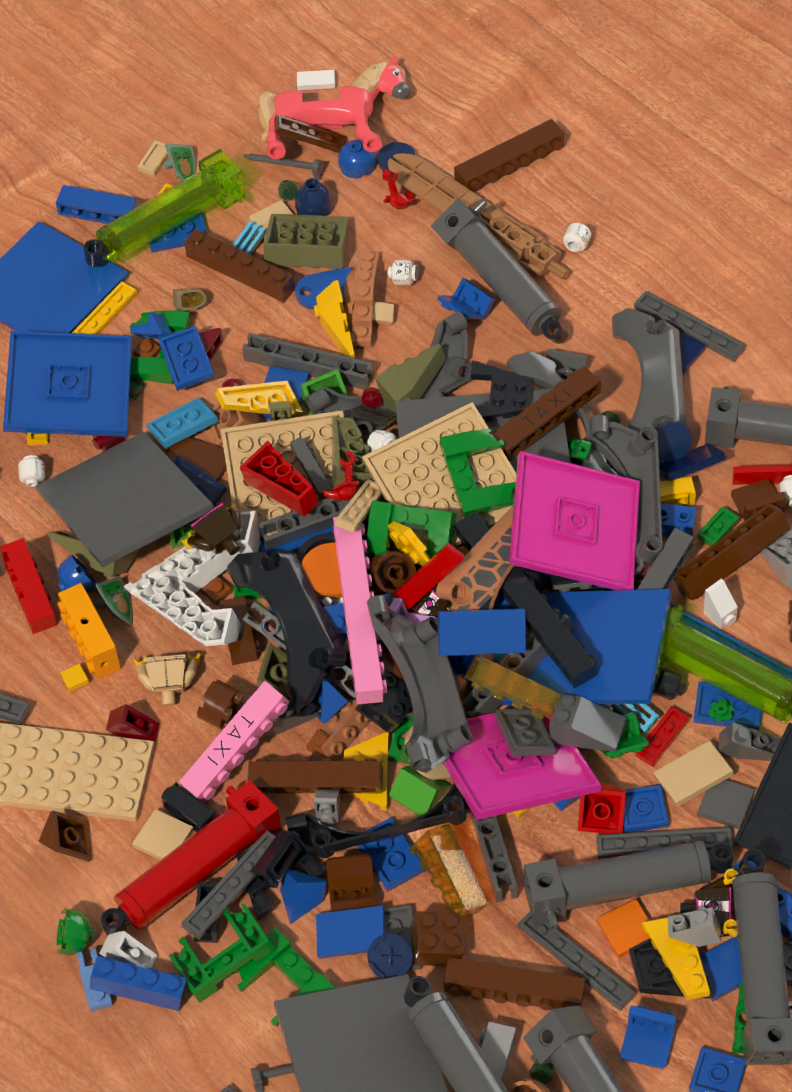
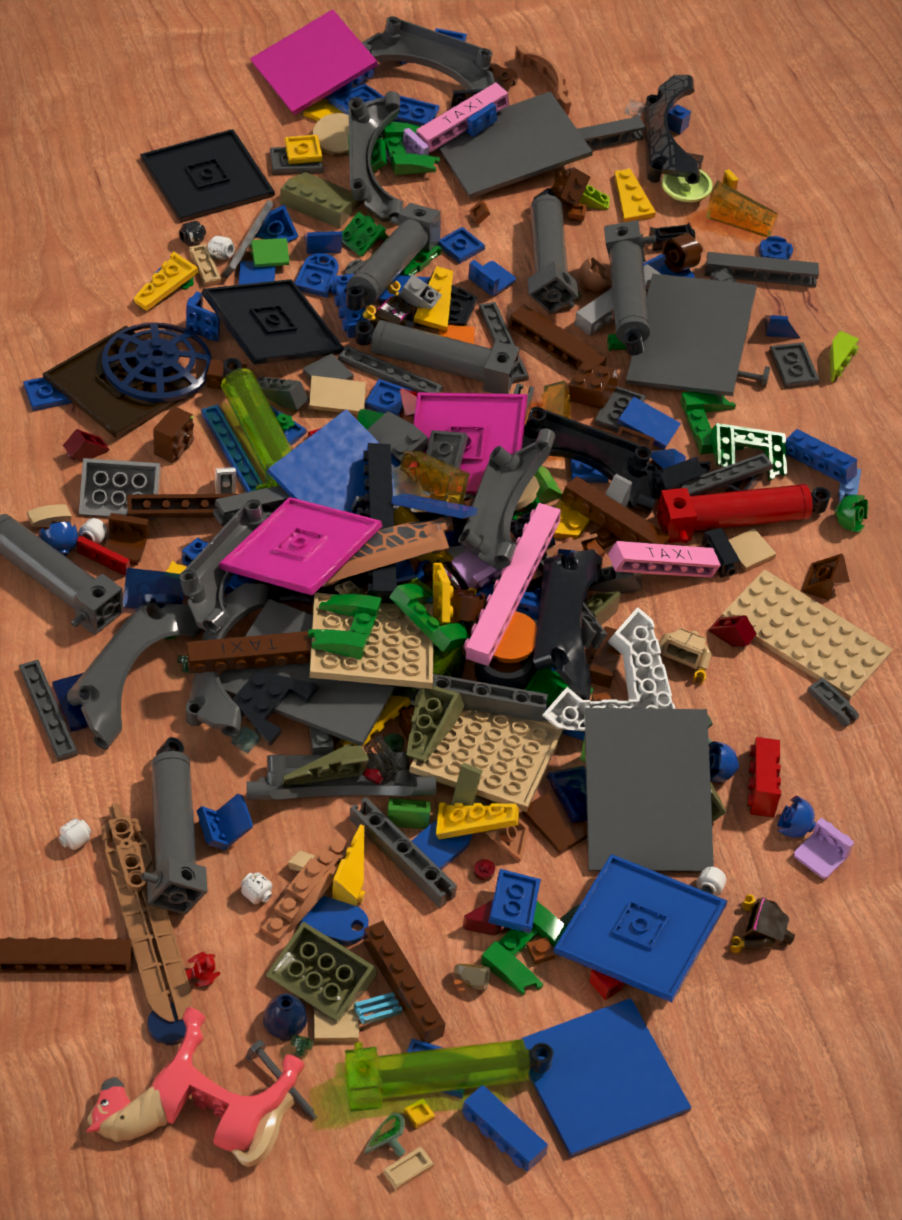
camera: 160 degrees left, 5 degrees down
(74, 677) = (759, 695): yellow tile -> none
(88, 631) = (734, 706): light orange brick -> none
(107, 310) = (558, 1013): yellow tile -> none
(127, 949) = (816, 480): white slope -> none
(154, 329) = (526, 946): blue slope -> none
(182, 422) = (551, 856): dark azure tile -> none
(216, 531) = (583, 696): dark brown torso -> none
(220, 704) = (657, 601): reddish brown brick -> none
(279, 480) = (509, 724): red wedge -> none
(308, 133) = (244, 1076): reddish brown tile -> none
(310, 466) = (468, 735): dark grey piece -> none
(316, 80) = (181, 1168): white tile -> none
(347, 489) = (458, 680): red piece -> none
(355, 160) = (215, 1044): blue cylinder -> none
(358, 507) = (461, 651): tan tile -> none
(379, 439) = (395, 723): white head -> none
(390, 956) = (631, 390): dark blue tile -> none
(429, 575) = (448, 564): red tile -> none
(566, 359) = (179, 731): dark grey slope -> none
(578, 449) = (243, 618): green piece -> none
(718, 526) = (172, 539): green plate -> none

